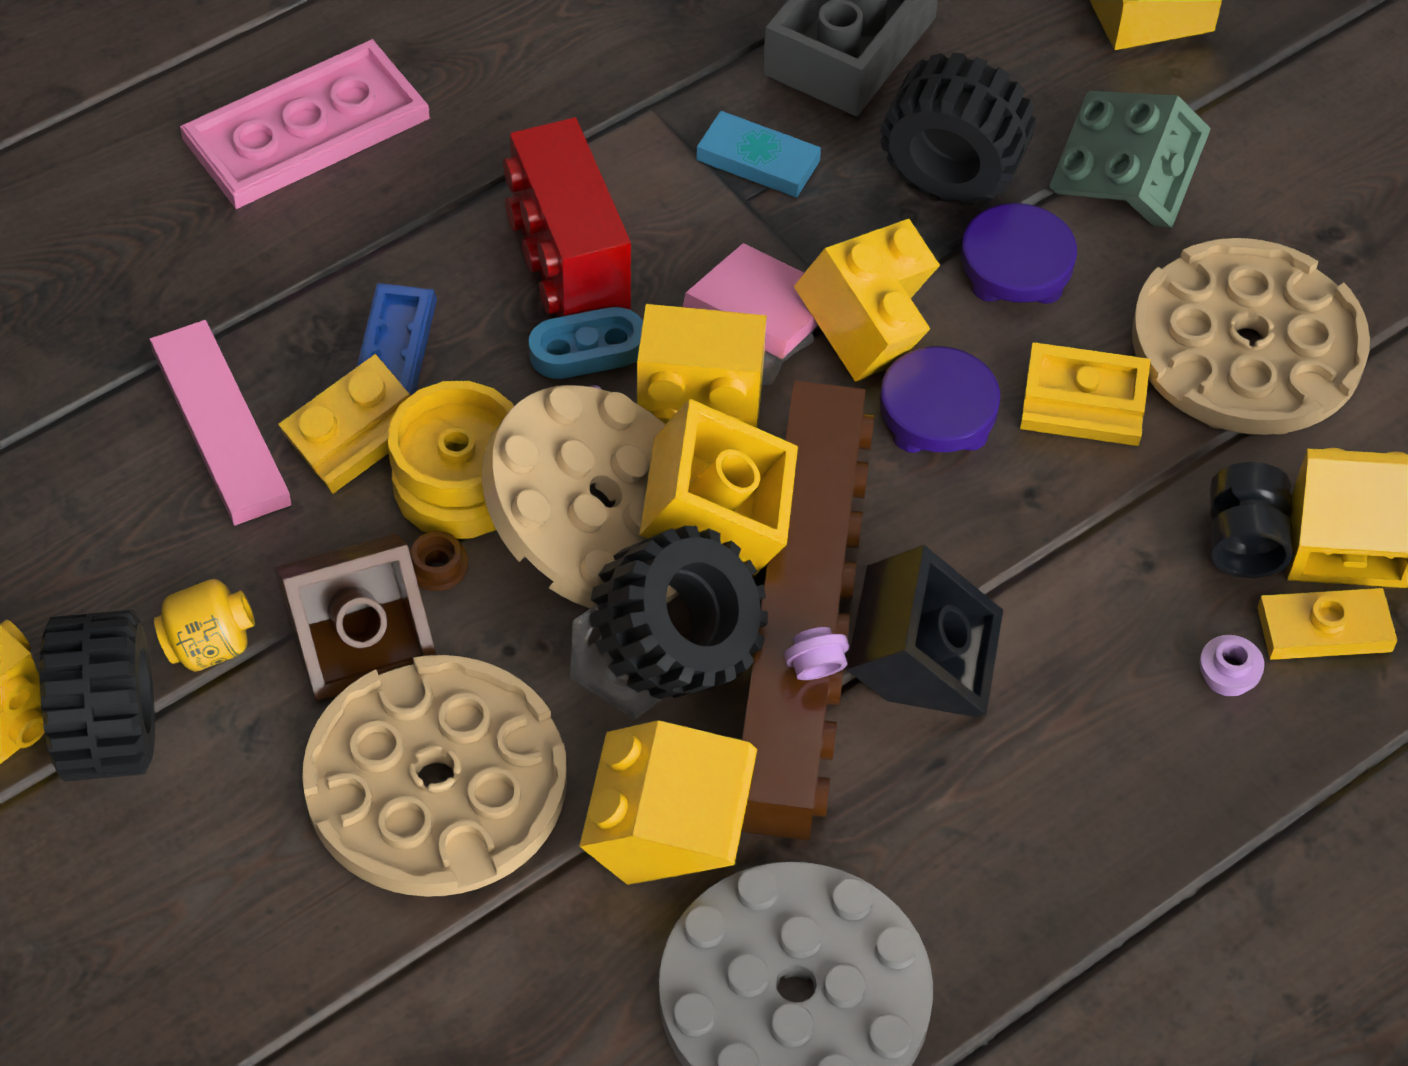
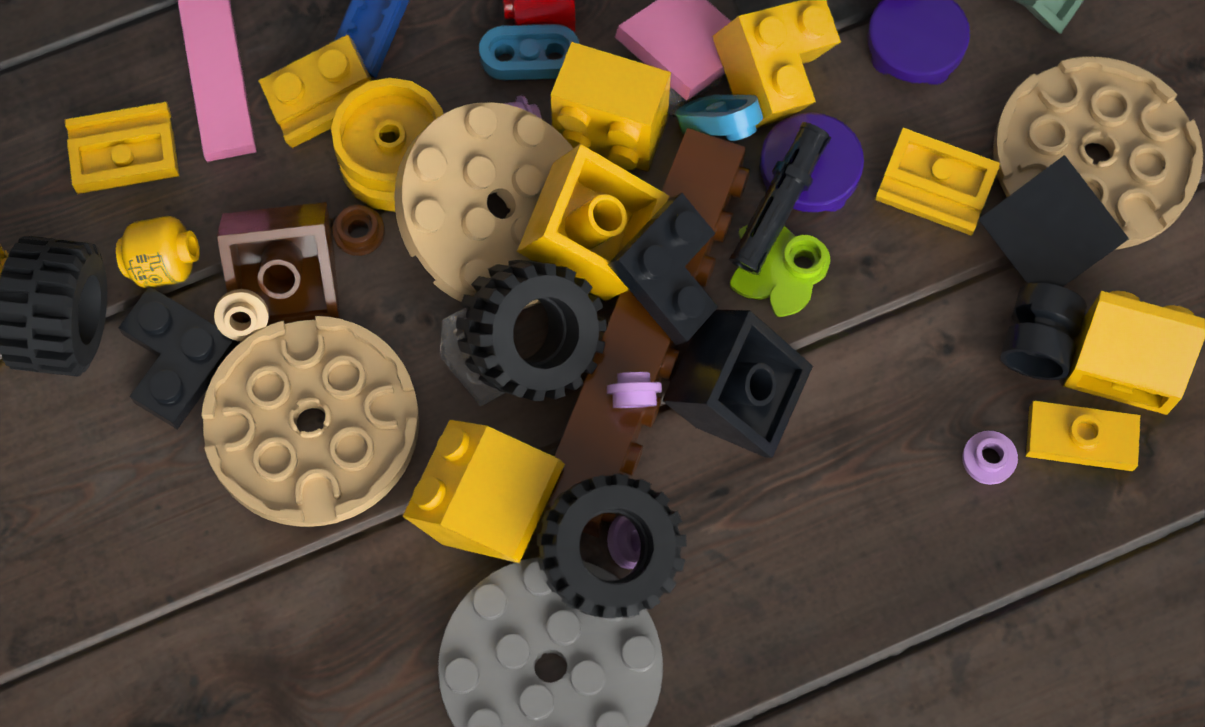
camera: 15 degrees right, 15 degrees up
(130, 524) = (121, 148): none -> yellow plate
(264, 735) = (186, 350): none -> black plate
(315, 654) = (243, 301): none -> tan plate
(806, 521) = (656, 271): none -> black plate
(840, 360) = (721, 115): none -> dark azure plate
(853, 828) = (624, 542): none -> lavender plate
(874, 785) = (658, 542): none -> black tyre
(925, 412) = (789, 181): none -> black pin
(931, 517) = (780, 277): none -> lime plate
(1228, 408) = (1053, 226): none -> black tile

